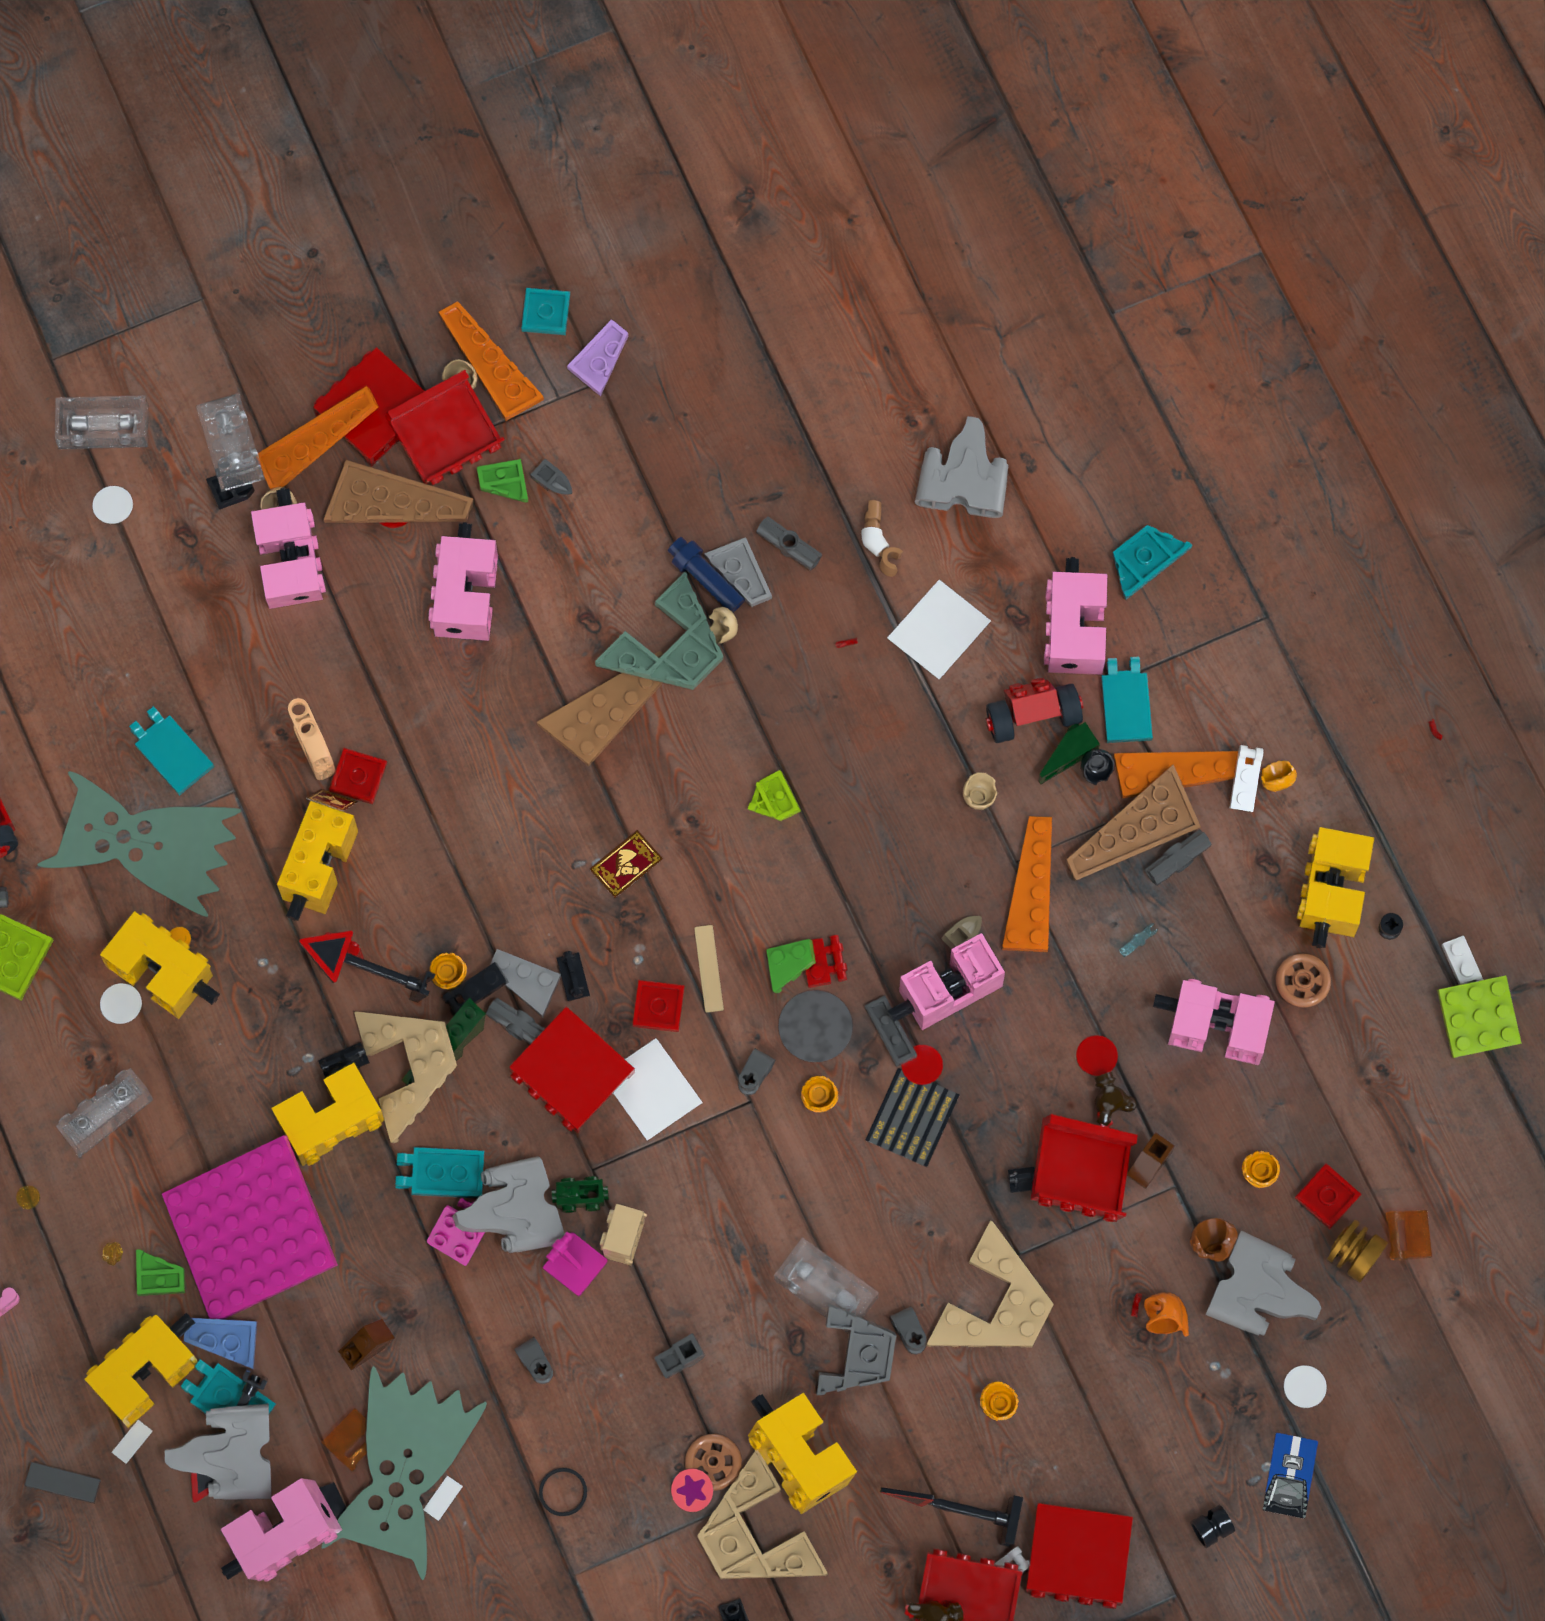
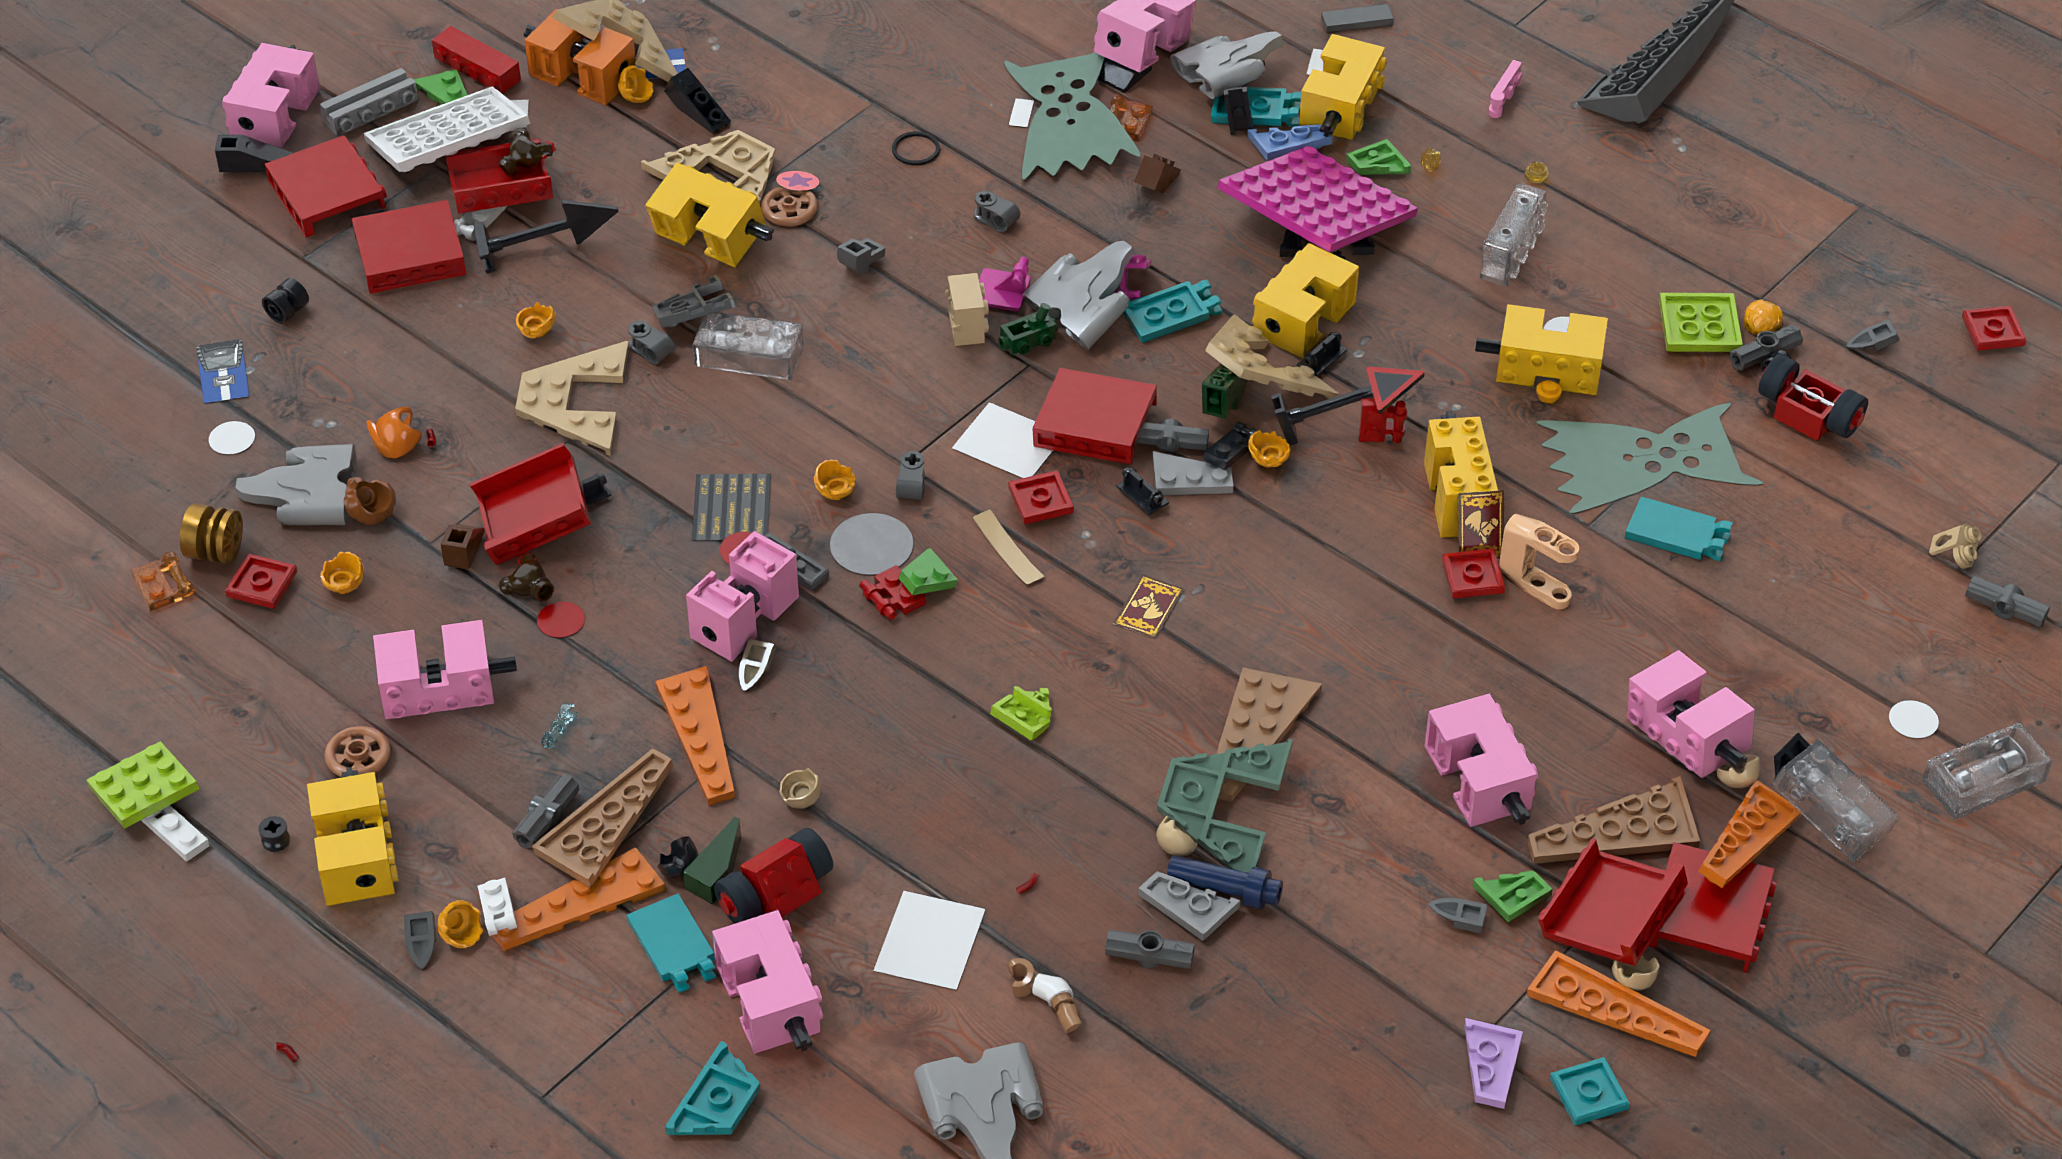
camera: 155 degrees right, 25 degrees down
(1310, 783) = (420, 936): none -> dark grey plate

